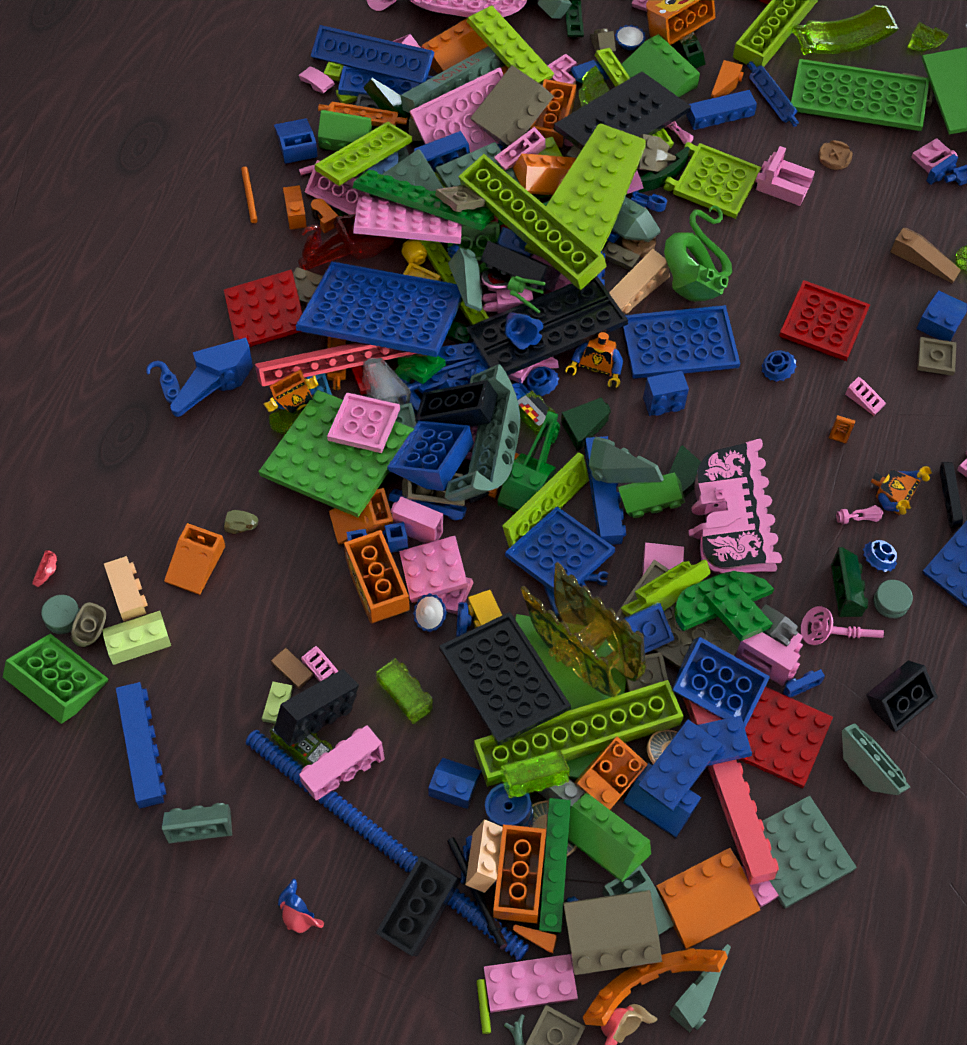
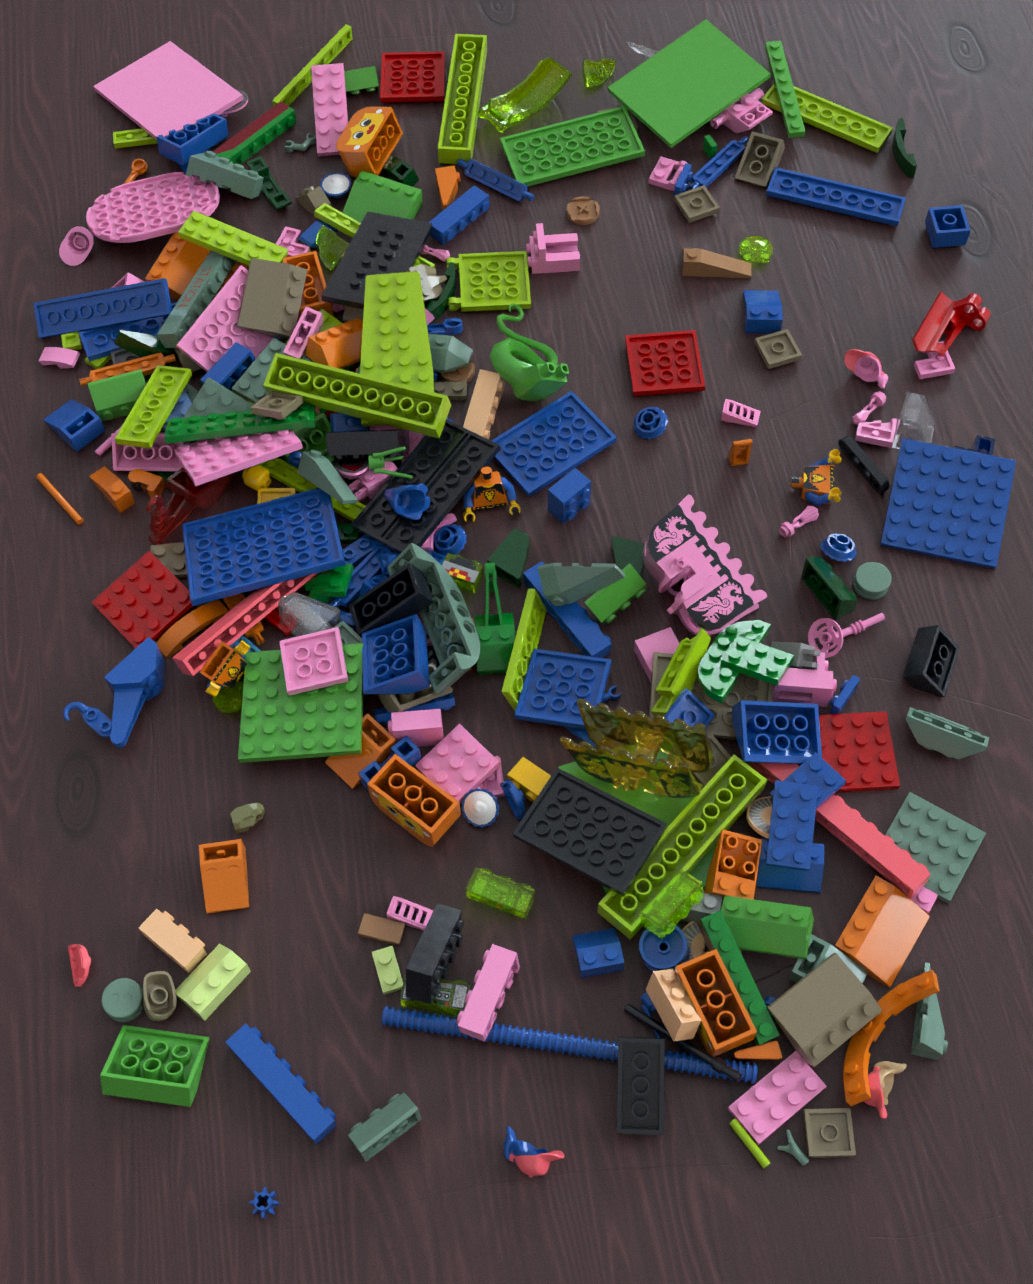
camera: 25 degrees left, 0 degrees up
(76, 830) = (257, 1203): none -> blue gear
(288, 346) = (189, 625): none -> orange slope
(943, 194) = (696, 203): none -> dark tan plate

